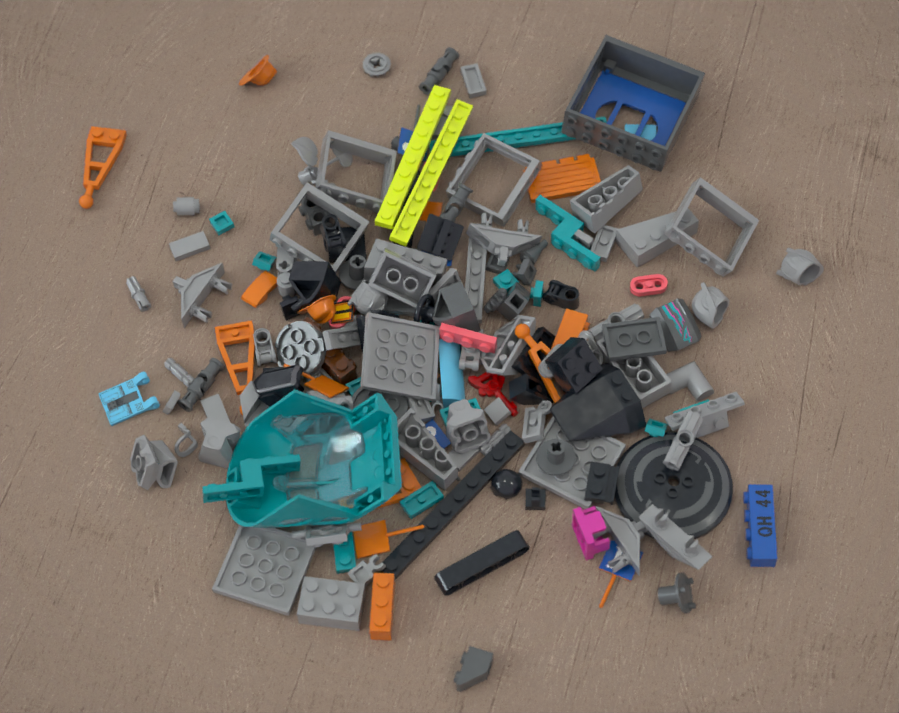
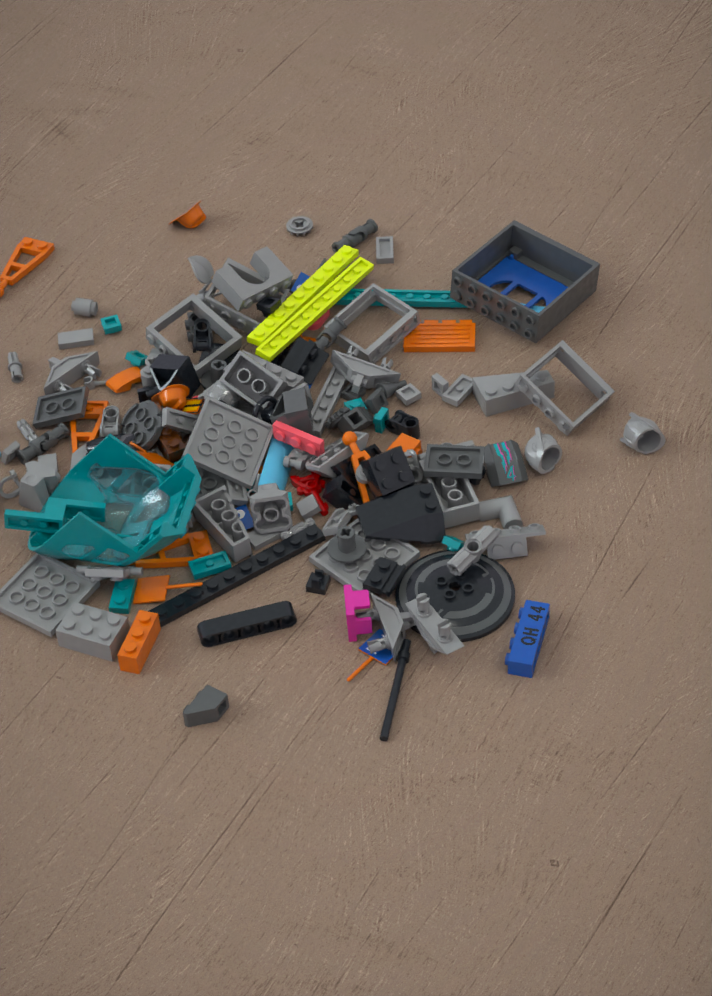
camera: 15 degrees right, 15 degrees down
(206, 338) = (61, 407): none -> dark grey plate
(225, 302) = (90, 383): none -> light grey hand
(356, 171) = (244, 294): none -> light grey arch
(364, 572) = (132, 609): light grey plate -> none
(385, 178) = (268, 305): none -> black tile
(506, 483) = (295, 565): black hair -> none
(554, 256) = (408, 394): none -> light grey plate
(563, 234) = (422, 377): teal bracket -> none
(606, 198) = (473, 353): light grey wedge -> none
(646, 571) = (402, 658): none -> black bar
(648, 284) = (490, 429): coral plate -> none
(678, 593) = (427, 677): dark grey piece -> none

